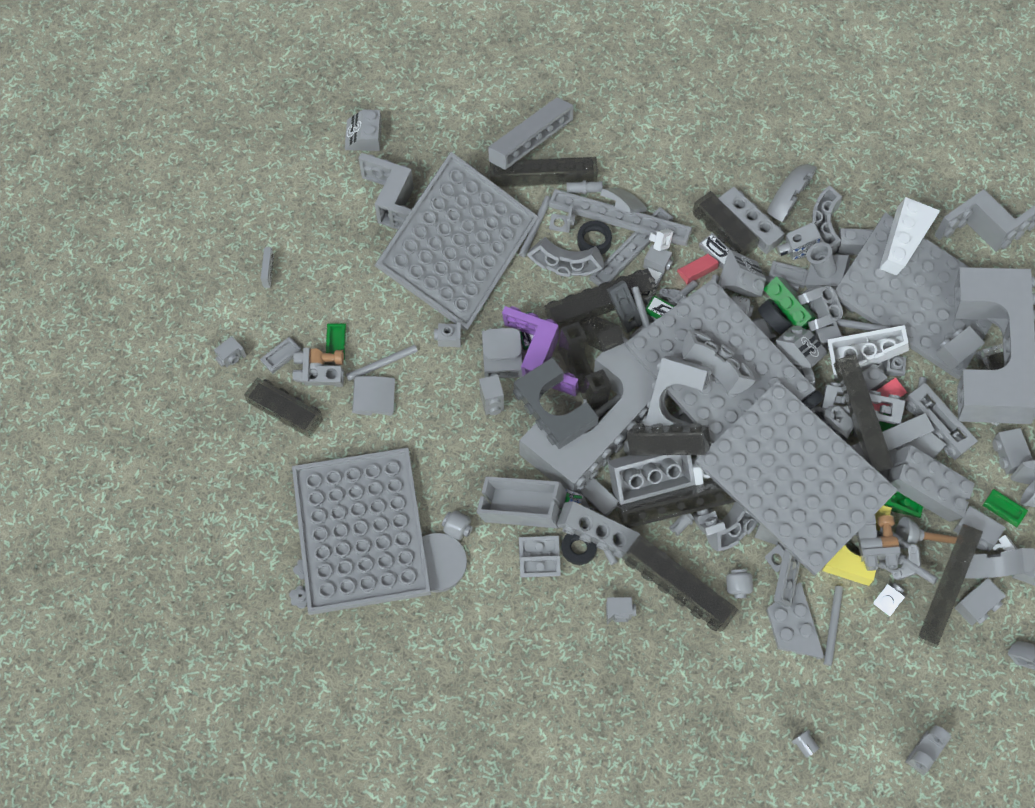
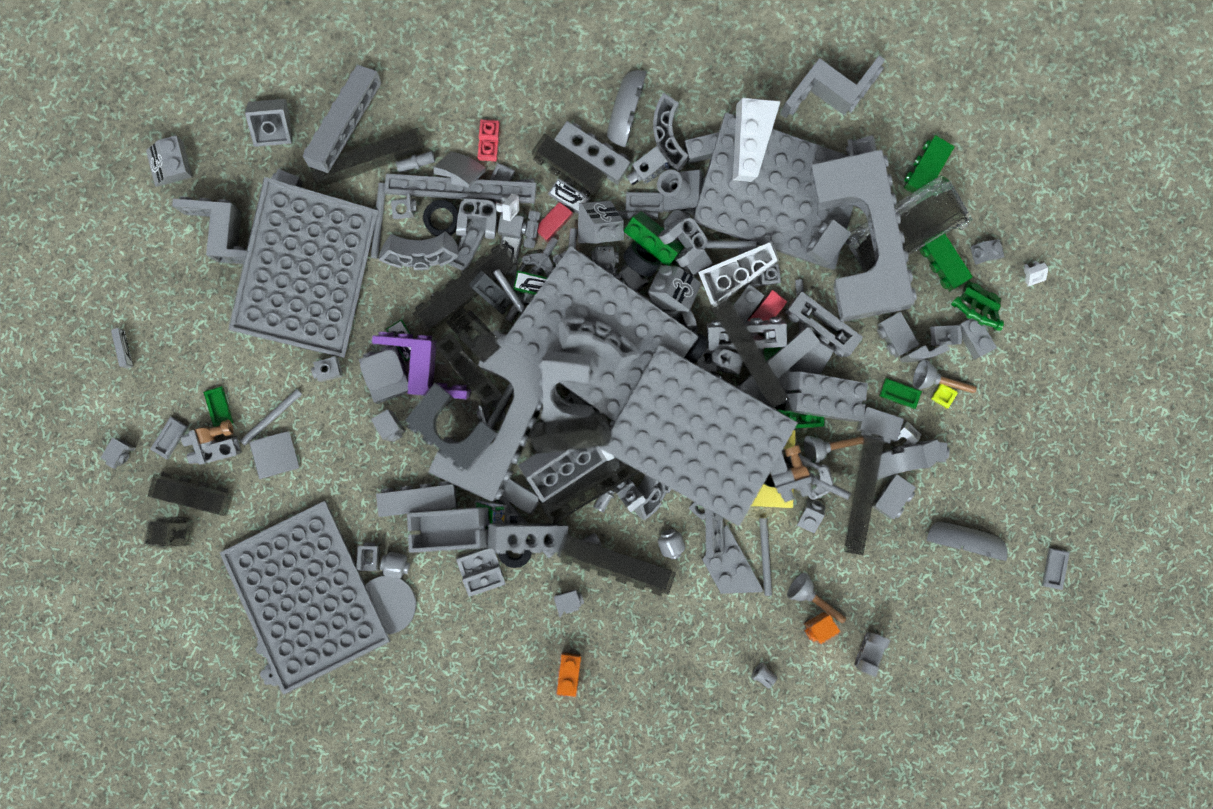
camera: 20 degrees left, 20 degrees up
(255, 425) = (169, 532): none -> clear smoke brick
(433, 511) = (368, 557): none -> light grey window
(463, 124) = (269, 122): none -> light grey slope
(475, 468) = (416, 500): none -> light grey brick
(601, 680) = (568, 674): none -> orange brick
(629, 241) = (477, 214): none -> light grey piece
(656, 187) = (488, 140): none -> coral slope
(676, 268) = (531, 229): none -> light grey axle
(867, 666) = (803, 589): none -> light grey piece
(878, 707) = (821, 628): none -> orange brick

